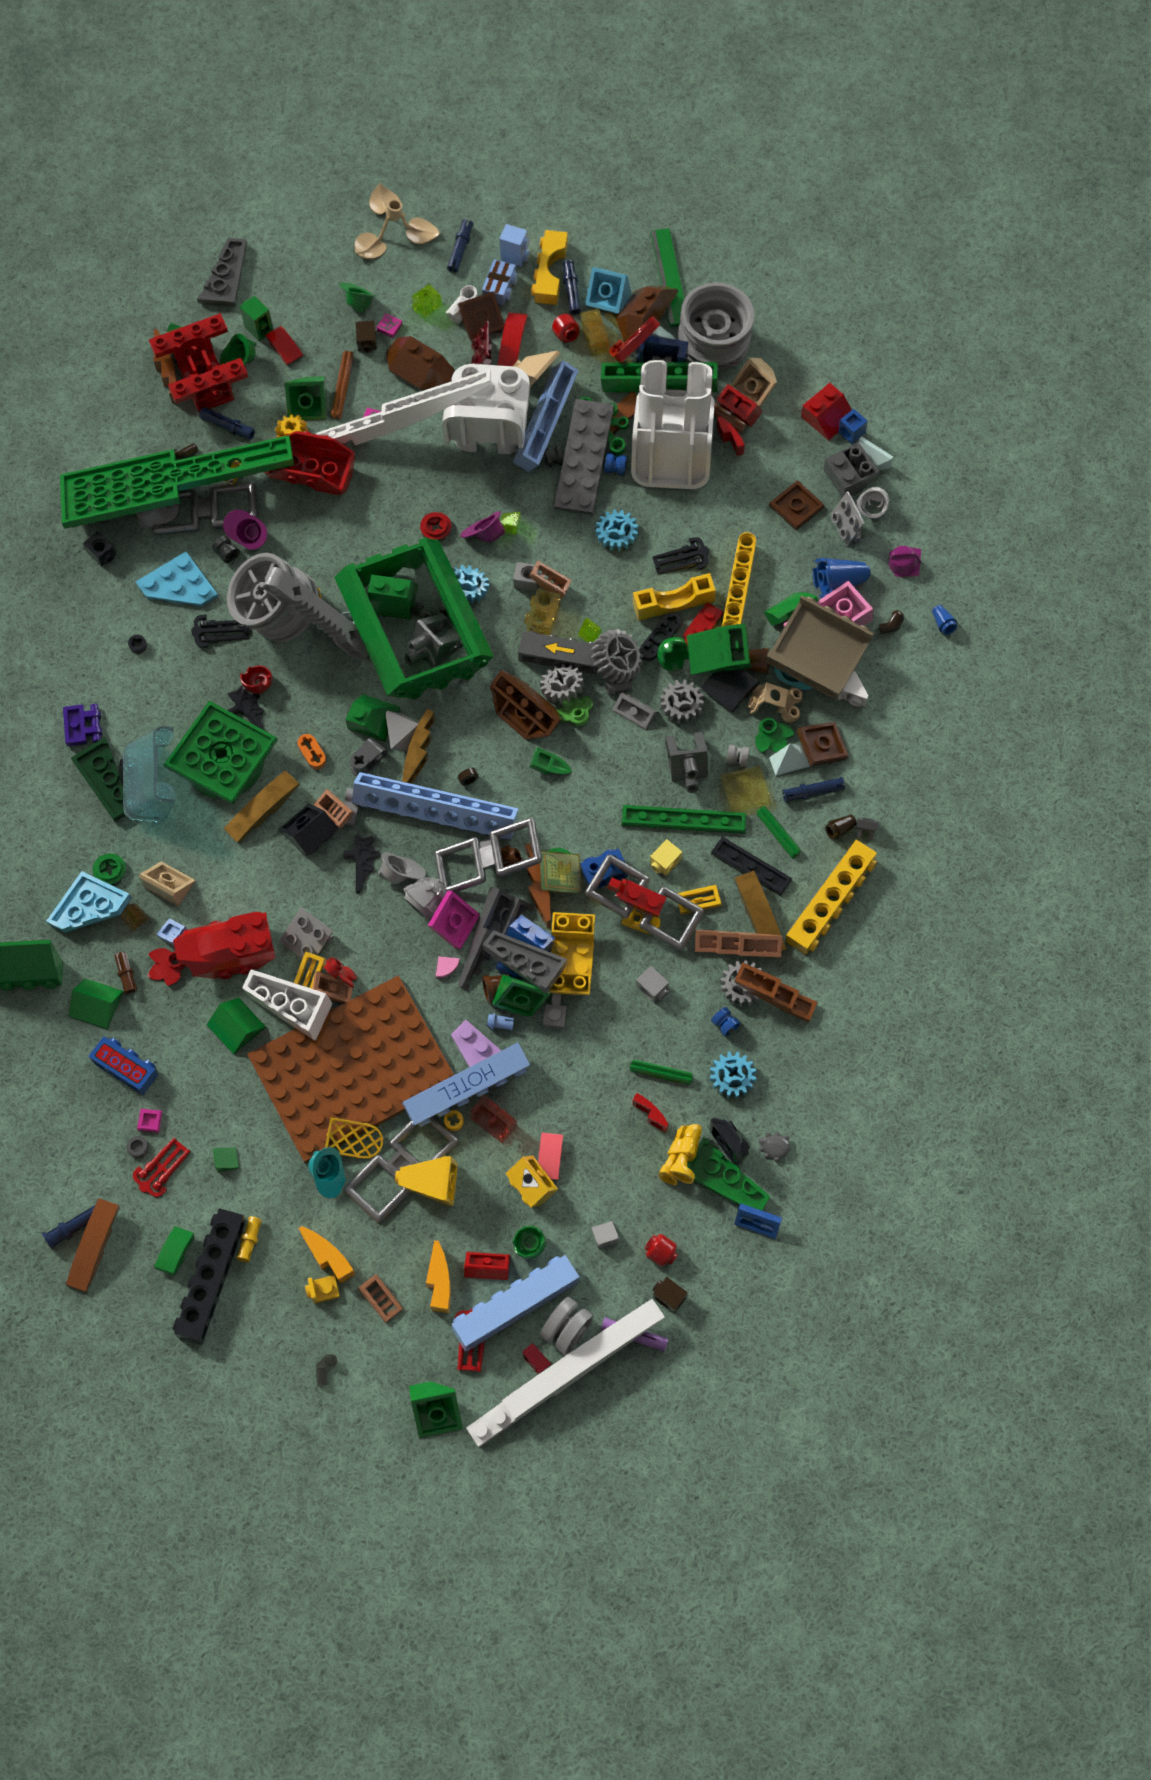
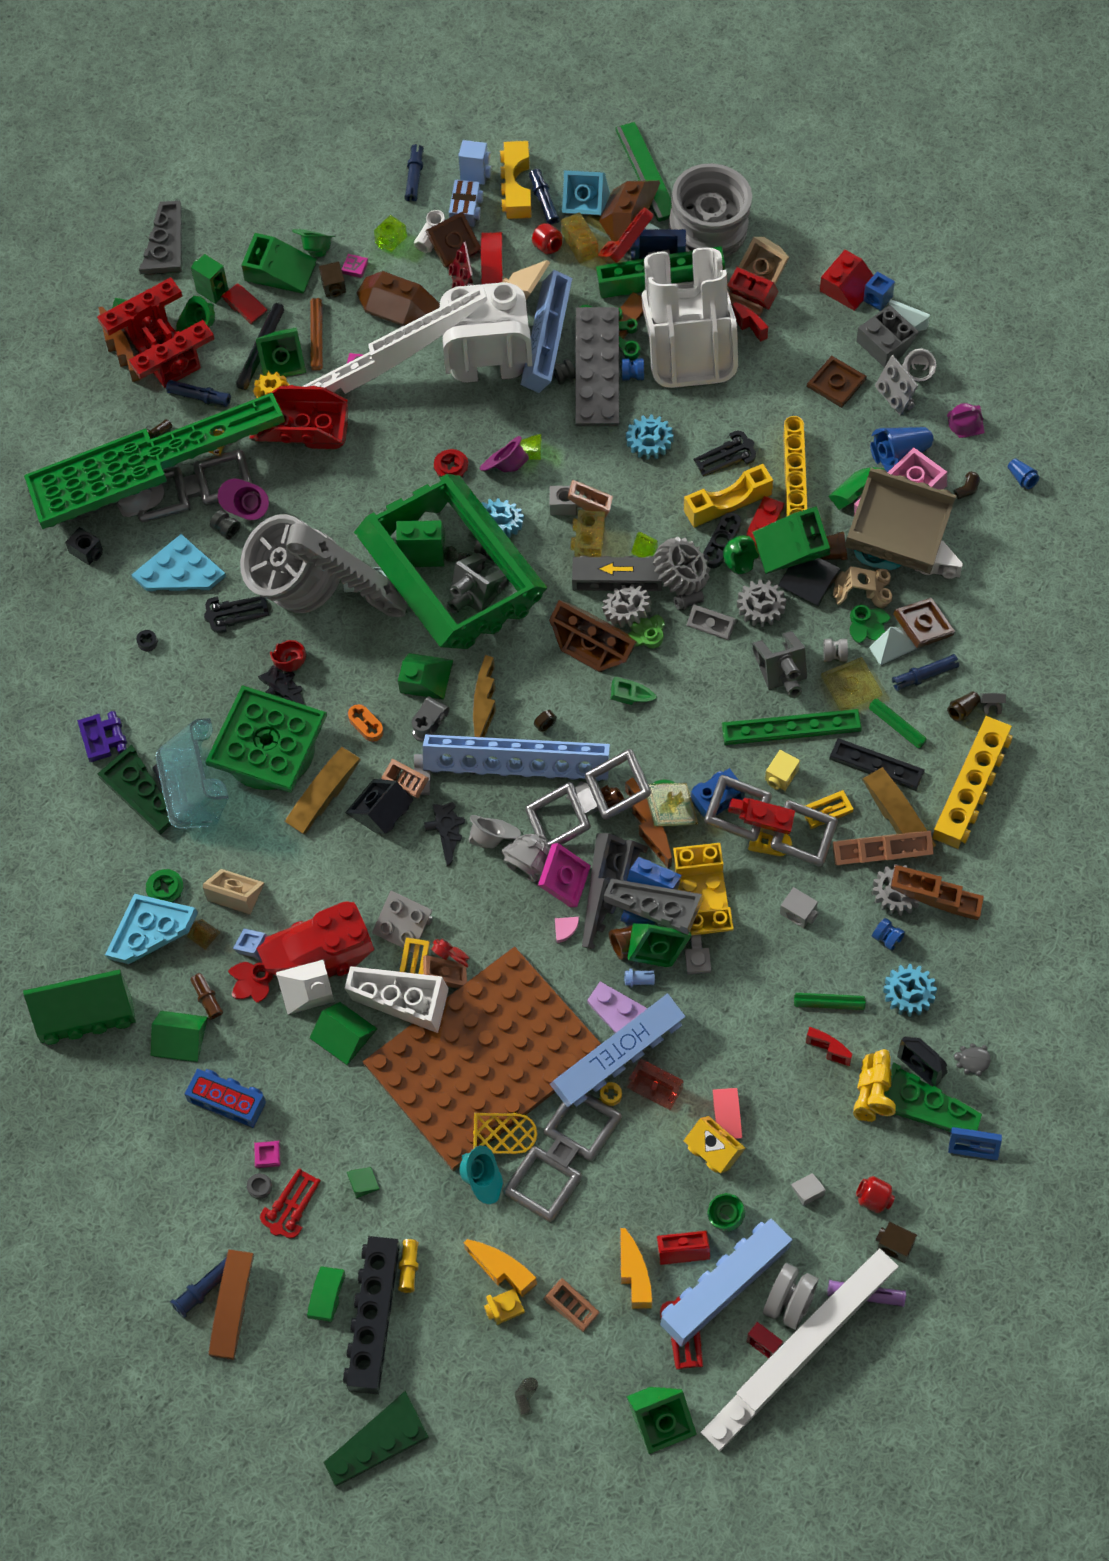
camera: 10 degrees left, 5 degrees down
(196, 1383) = (381, 1439): none -> dark green wing
(210, 980) = (305, 987): none -> white slope
(280, 402) = (253, 359): none -> black axle
(320, 314) = (277, 264): none -> green slope
(385, 201) = (322, 140): tan plant -> none
(400, 730) = (460, 684): light grey slope -> none
(430, 1179) = (600, 1162): yellow slope -> none

